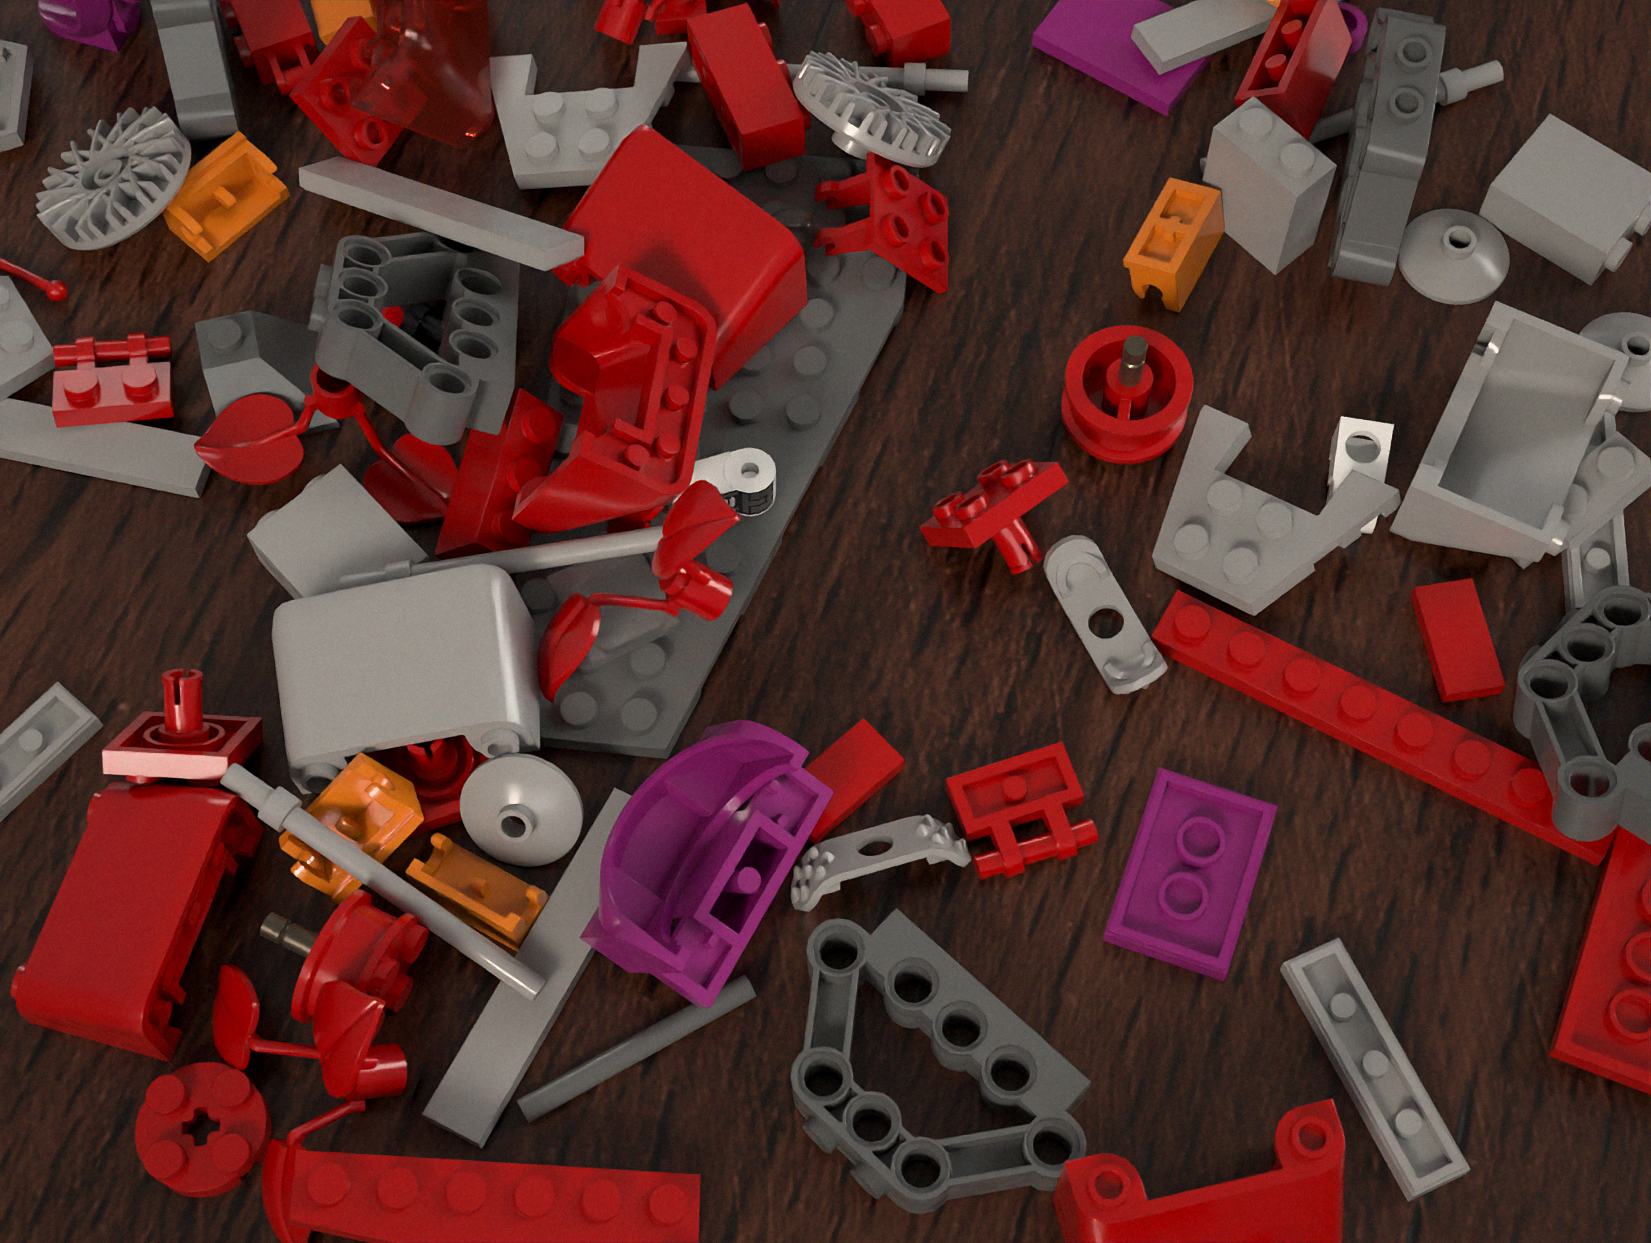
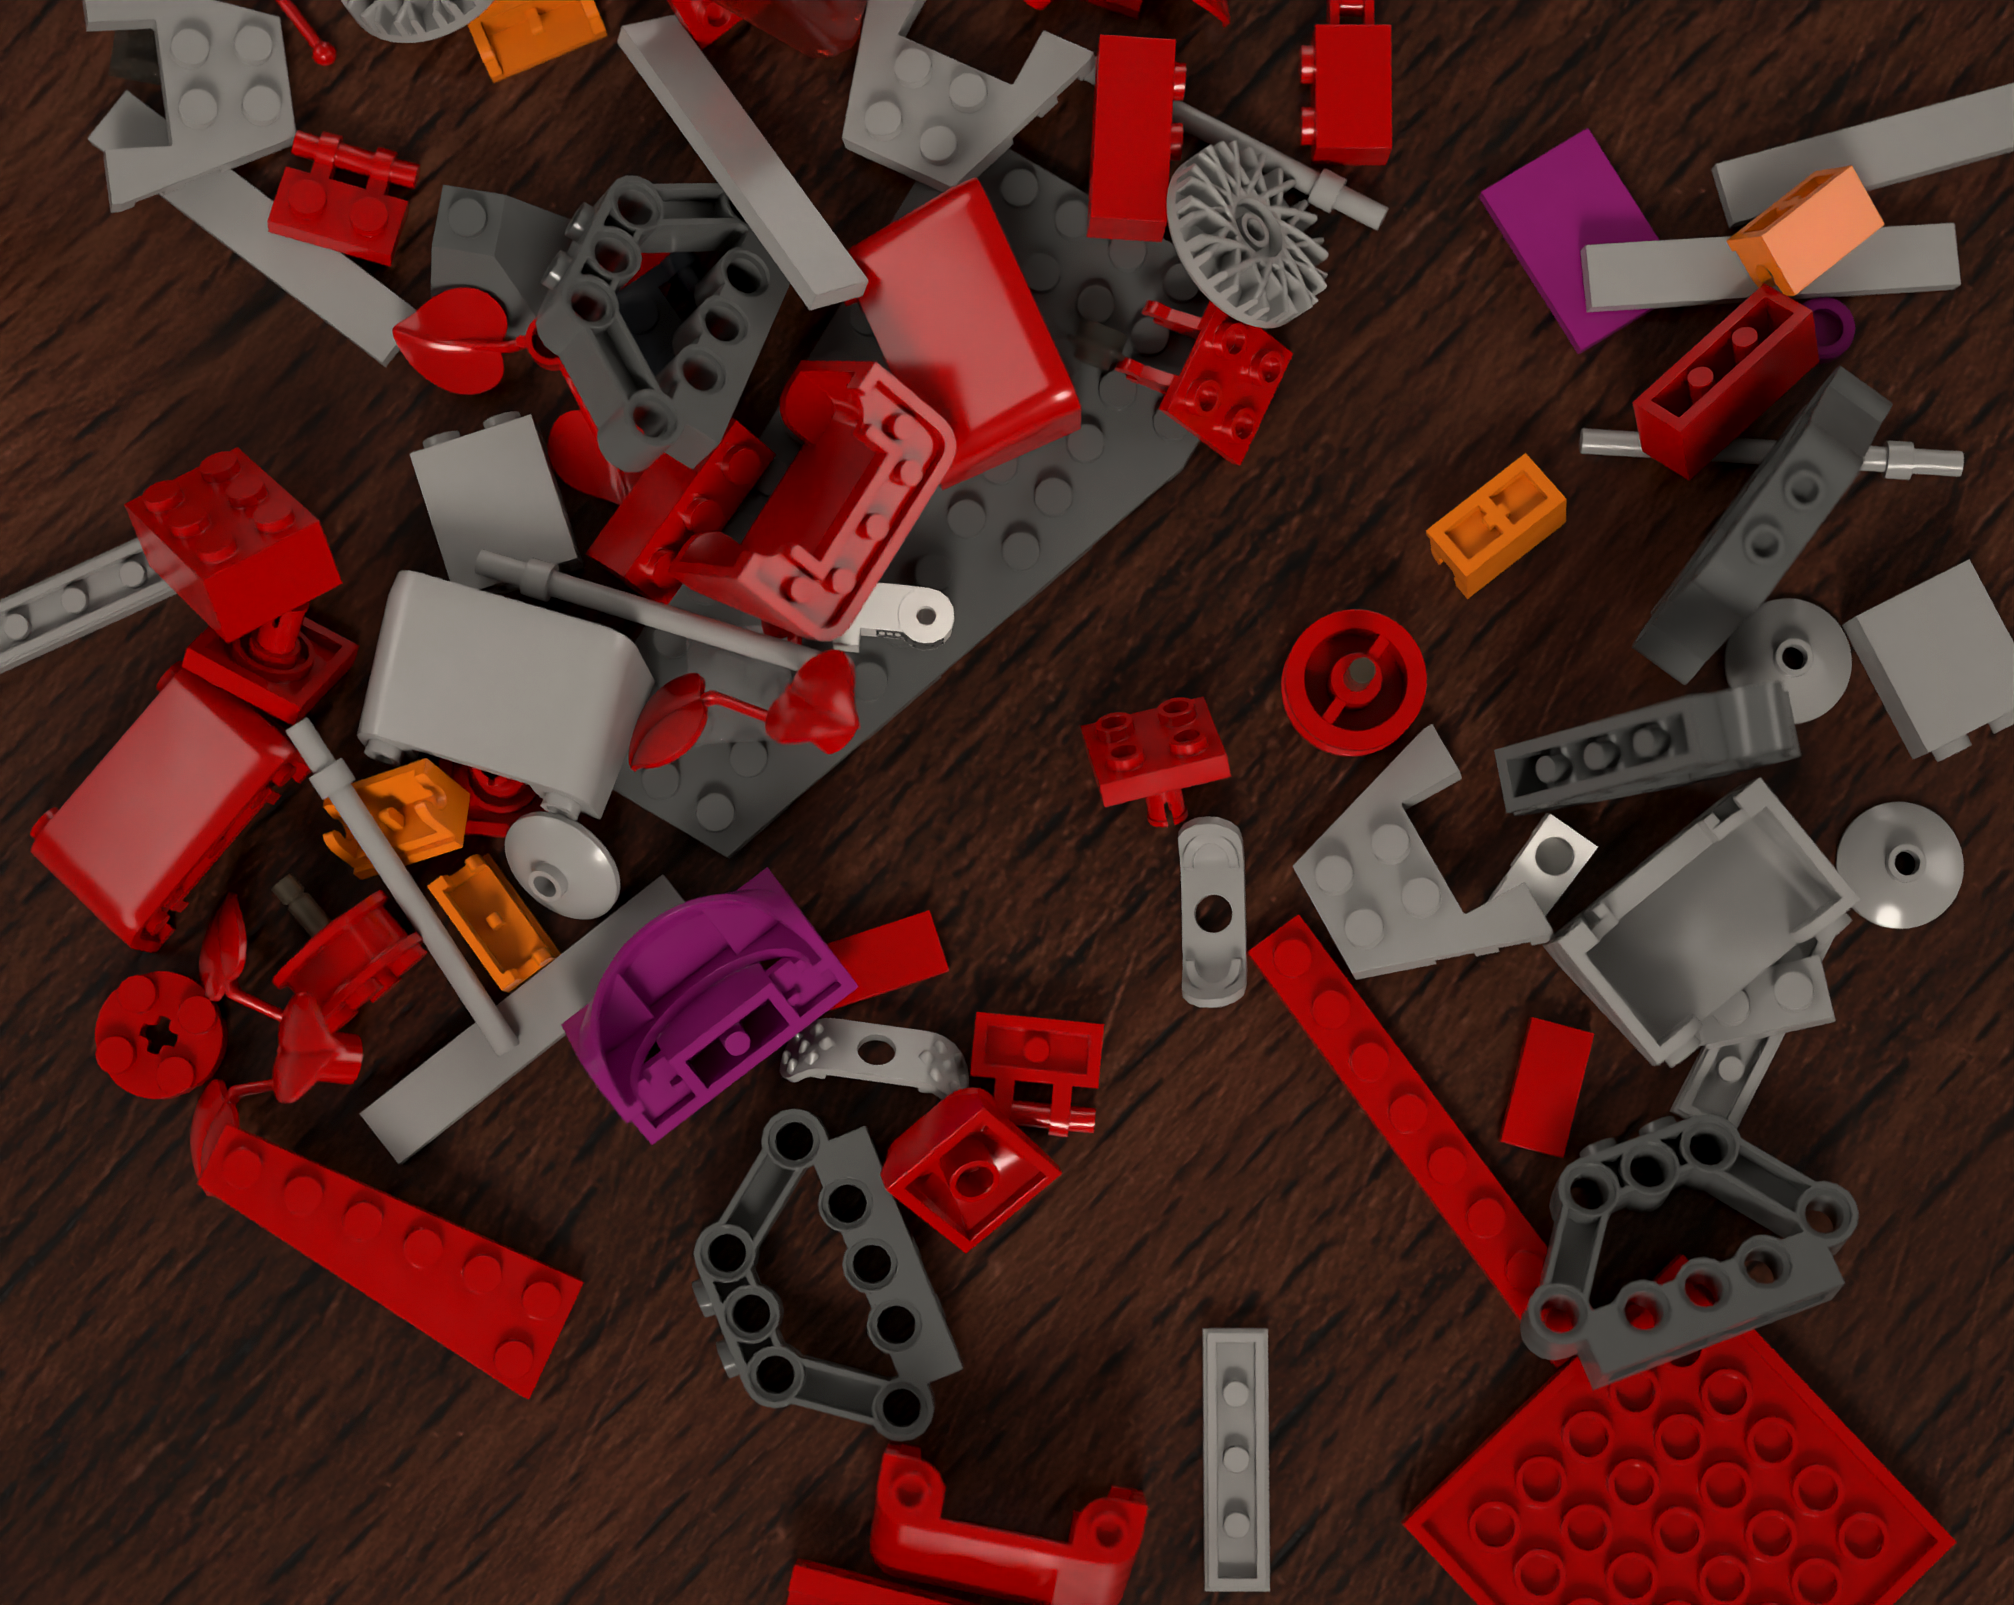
camera: 25 degrees right, 20 degrees up
(113, 649) = (233, 543): none -> red brick
(633, 1050) = (565, 1138): dark grey bar -> none
(1005, 906) = (966, 1167): none -> red slope
(1190, 874) = (1166, 1201): magenta tile -> none
(1268, 184) = (1614, 515): light grey brick -> none
(1403, 310) = (1650, 749): none -> dark grey brick

